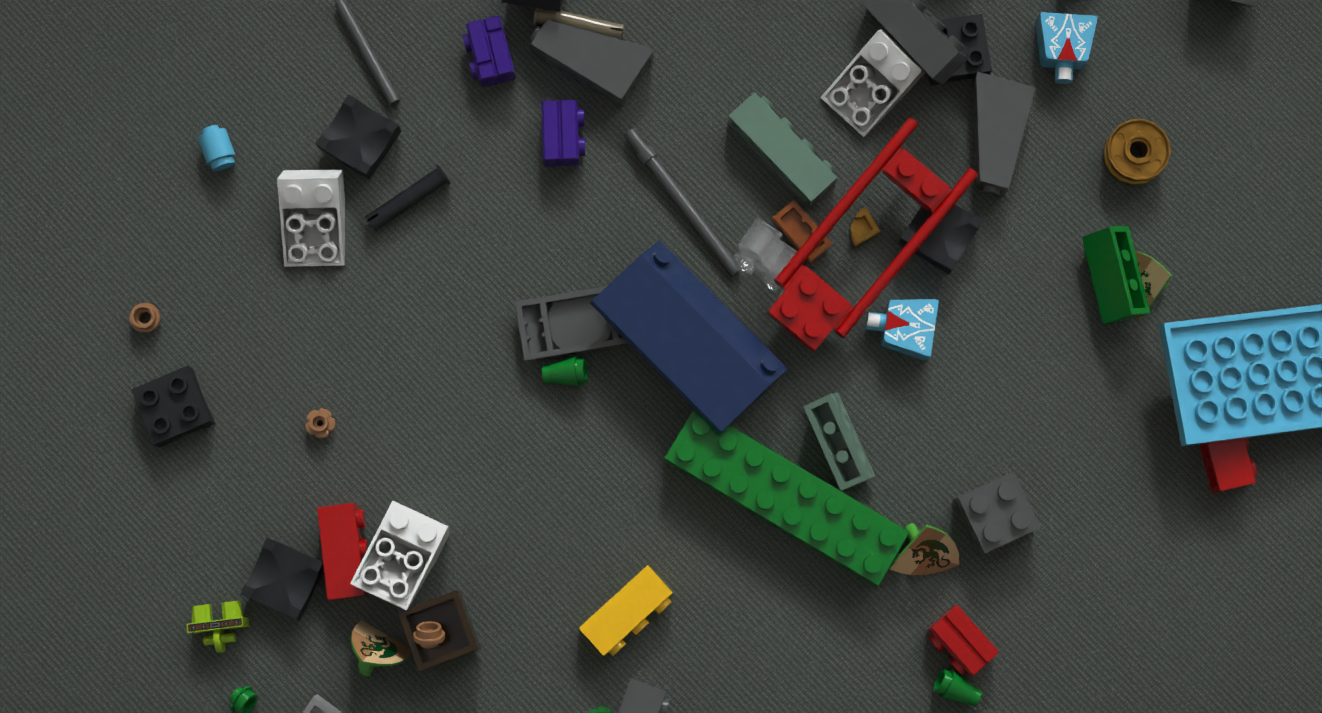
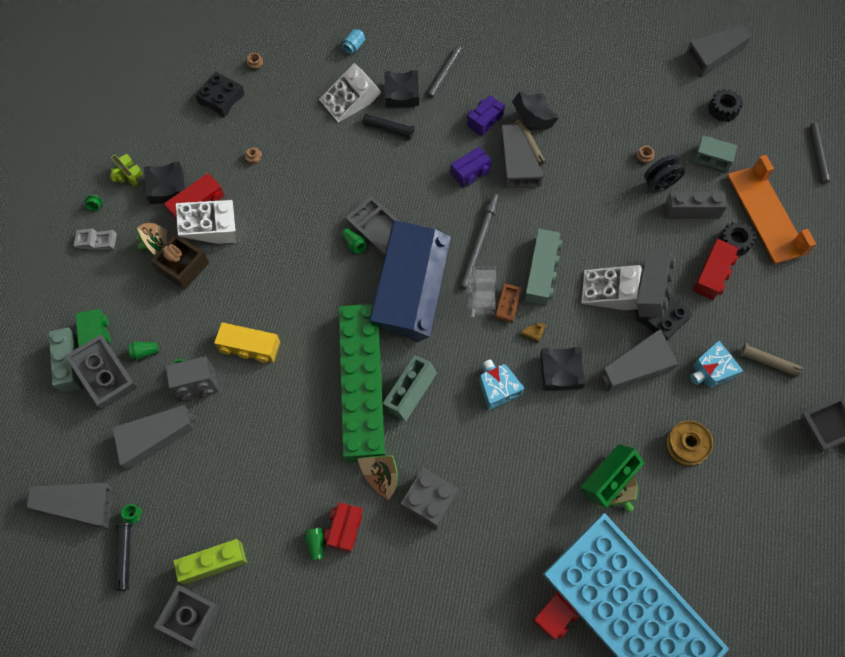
camera: 55 degrees right, 15 degrees down
(814, 308) = (471, 325): red plate -> none

